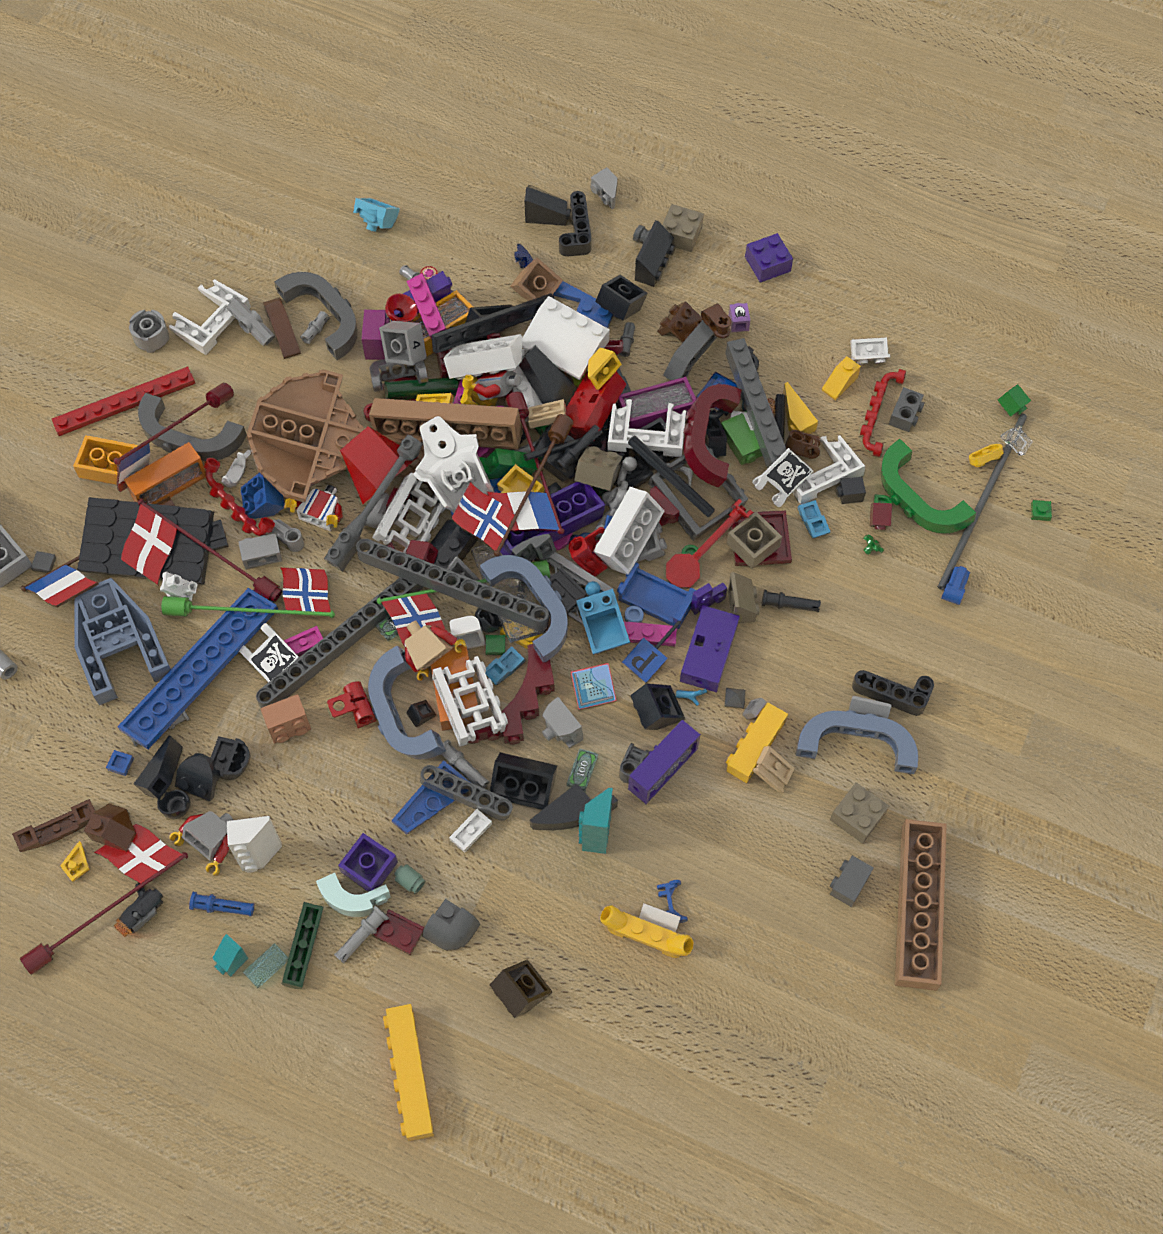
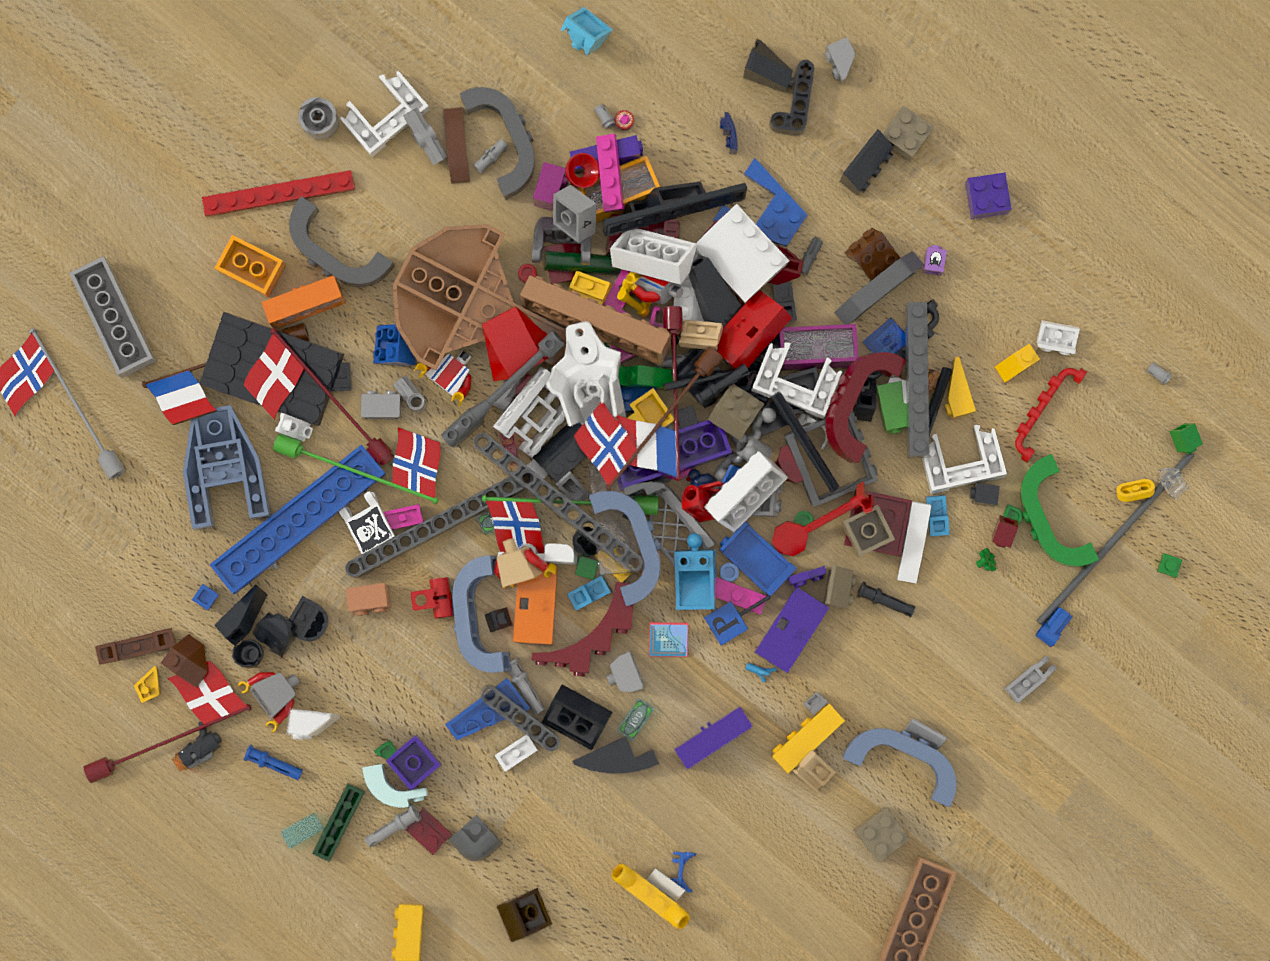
camera: 15 degrees right, 20 degrees up
(43, 562) = (168, 360): dark grey tile -> none
(139, 456) = (370, 220): flag -> none
(229, 956) = (270, 817): teal slope -> none
(236, 470) = (374, 307): white helmet -> none
(266, 524) = (391, 385): red bar -> none
(332, 865) = (386, 750): none -> green tile
(409, 878) = (448, 784): sand green brick -> none
(422, 550) = (536, 460): dark red brick -> none
(454, 705) = (531, 632): white fence -> none
(536, 281) = (733, 164): medium nougat slope -> none
(567, 588) = (668, 532): black plate -> none
(595, 823) = (631, 789): teal slope -> none
(602, 366) = (769, 301): yellow slope -> none
(621, 297) = (816, 208): black brick -> none
(633, 758) = (685, 725): dark grey piece -> none
(640, 234) = (863, 131): dark grey wheel -> none
(657, 706) = (724, 676): black slope -> none
(717, 320) = (905, 270): reddish brown piece -> none
(735, 698) = (801, 684): dark grey slope -> none
(785, 475) = (919, 468): flag -> none
(800, 545) = (914, 542): none -> white slope
(802, 443) = (953, 432): reddish brown piece -> none
(851, 880) = (852, 897): dark grey brick -> none
(891, 689) = (952, 719): black beam -> none
(905, 409) = (1068, 414): dark grey brick -> none
(950, 638) = (1029, 680): none -> light grey hinge
(969, 358) = (1159, 373): none -> light grey pin

